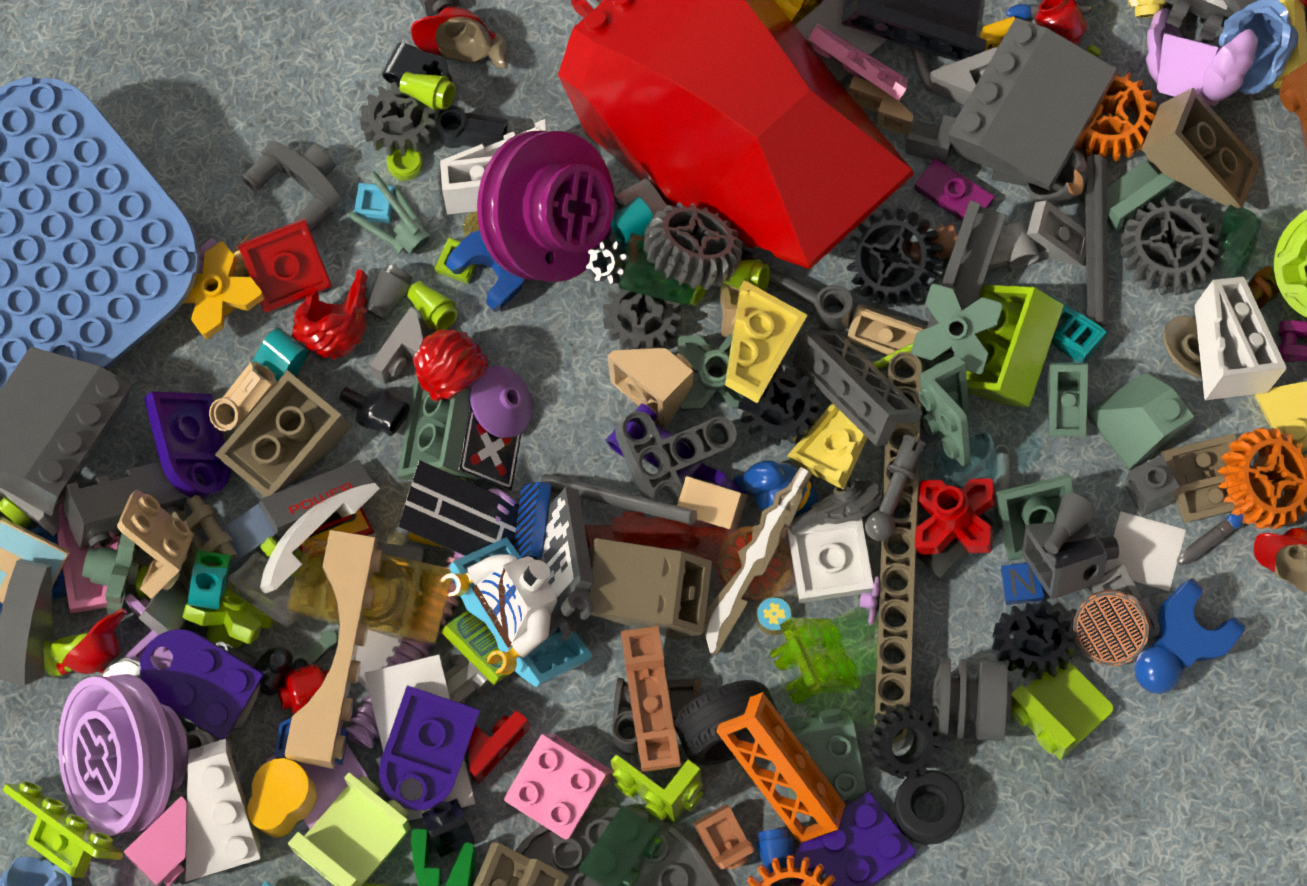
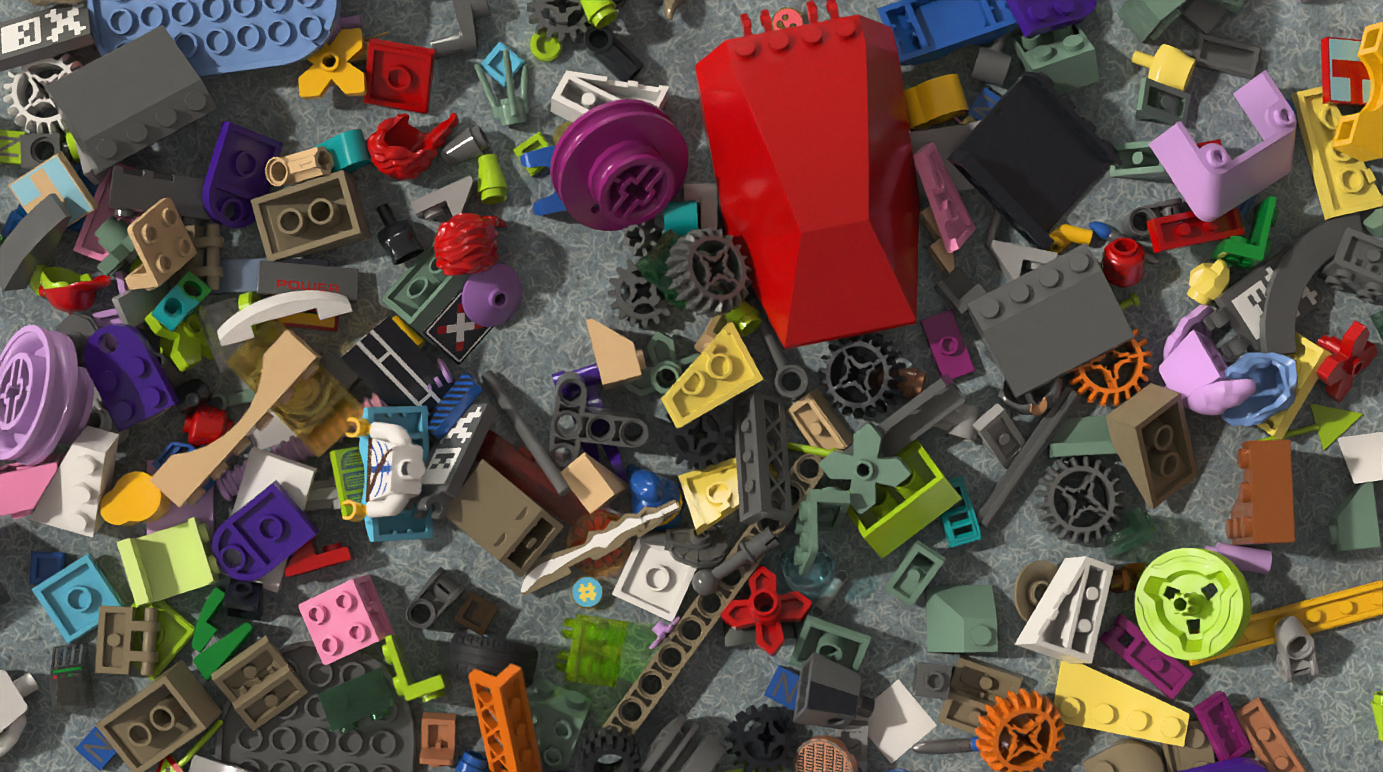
camera: 25 degrees right, 15 degrees up
(650, 699) = (446, 607): nougat slope -> none
(1073, 514) = (851, 670): dark grey cone -> none

